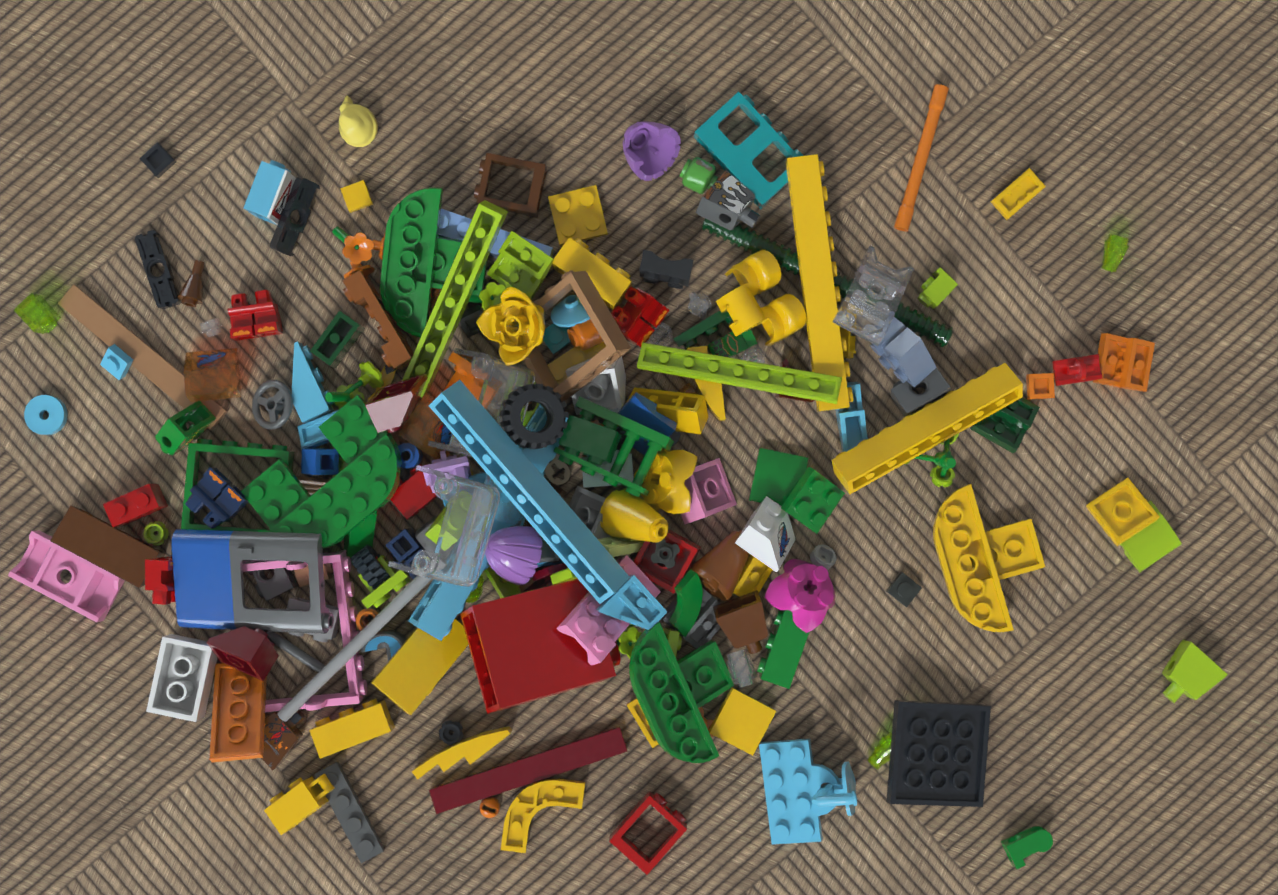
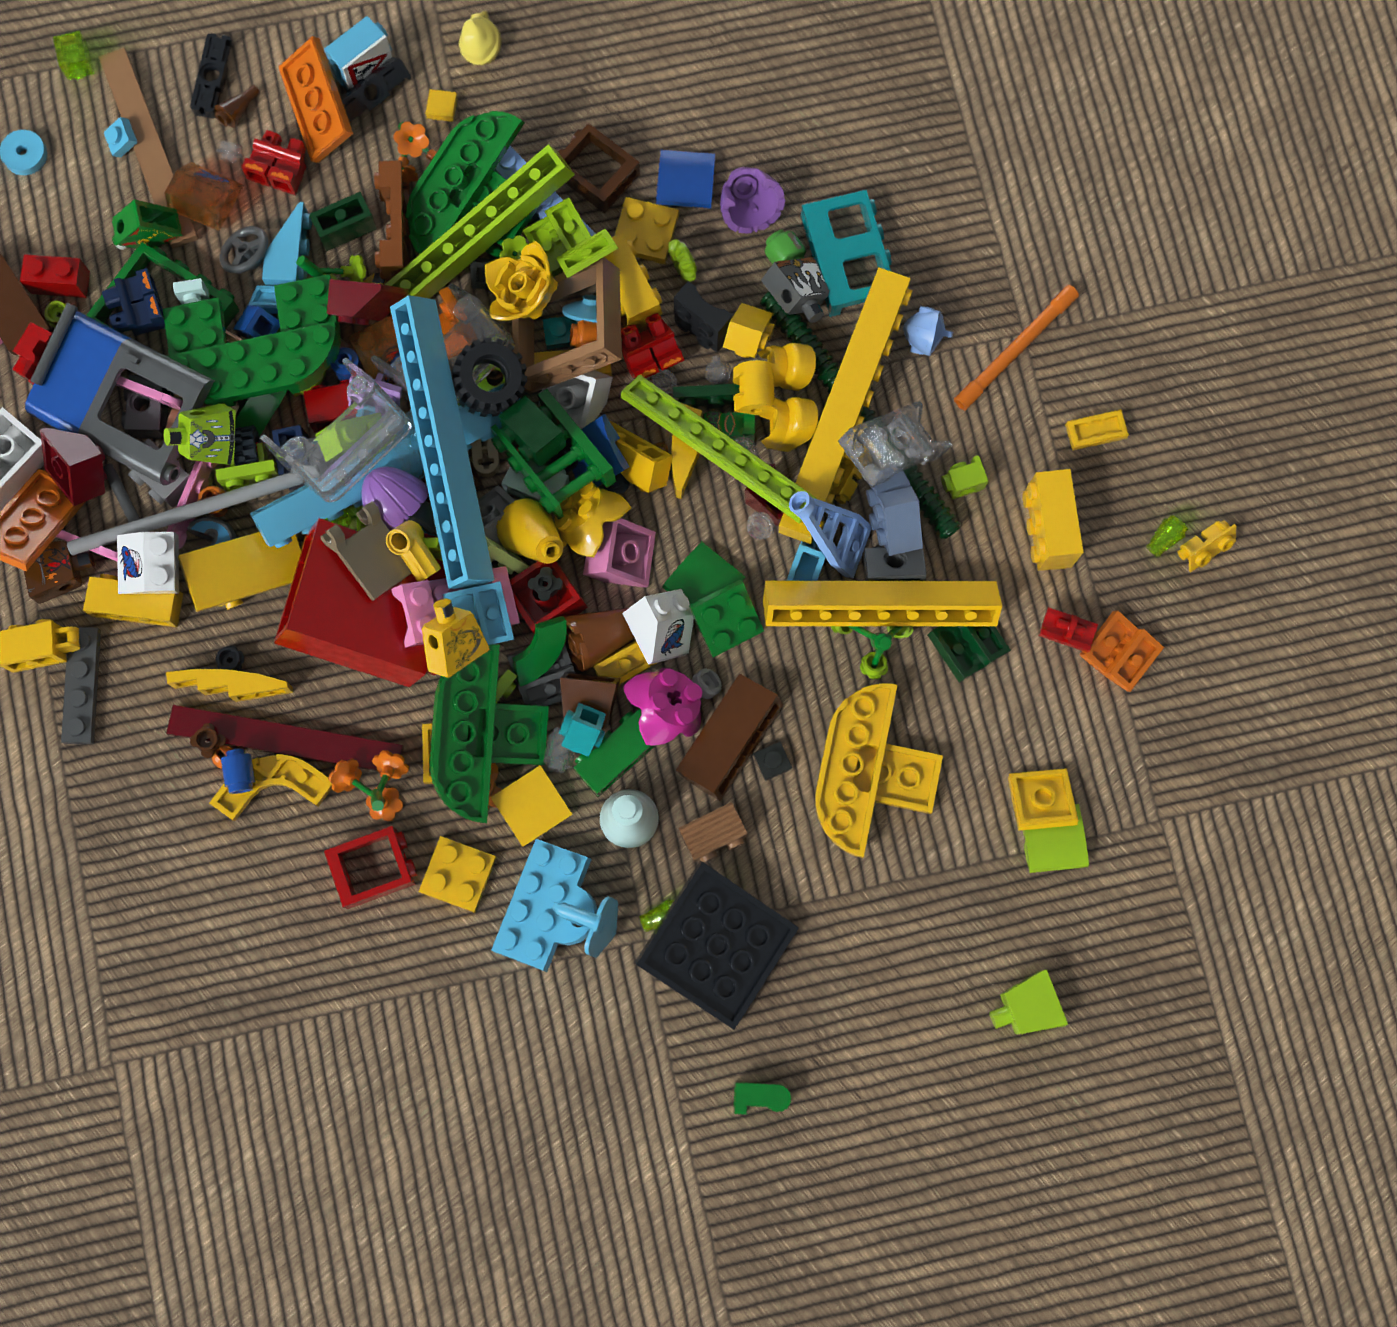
camera: 20 degrees right, 10 degrees down
(175, 571) = (54, 344): none -> dark grey bar
(255, 248) = (315, 99): none -> orange tile
(255, 466) = (190, 291): none -> light aqua plate
(339, 580) = (205, 434): none -> lime torso
(351, 700) = (148, 563): none -> white slope
(466, 808) = (207, 749): none -> reddish brown plate
(511, 817) = (238, 771): none -> blue brick
(527, 610) = (368, 554): none -> dark tan flag
(550, 587) = (412, 551): none -> yellow piece
(556, 276) = (586, 253): none -> lime slope
(587, 155) = (685, 179): none -> blue slope
(624, 228) = (682, 260): none -> lime gear
(626, 644) = (452, 639): none -> yellow torso
(628, 775) = (382, 802): none -> orange plant
(709, 261) = (749, 331): none -> yellow brick
(714, 801) = (457, 874): none -> yellow plate
(754, 649) = (582, 729): none -> teal brick
(798, 411) = (760, 525): none -> clear plate
(819, 690) = (629, 818): none -> light aqua cone
(843, 184) = (925, 330): none -> light blue helmet
(863, 590) = (730, 737): none -> reddish brown brick
(875, 382) = (854, 532): none -> light blue plate
(889, 669) = (713, 832): none -> medium nougat brick
(1024, 290) = (1053, 520): none -> yellow brick
(1040, 386) = (1022, 629): orange plate -> none
(1153, 233) = (1218, 538): none -> yellow hinge

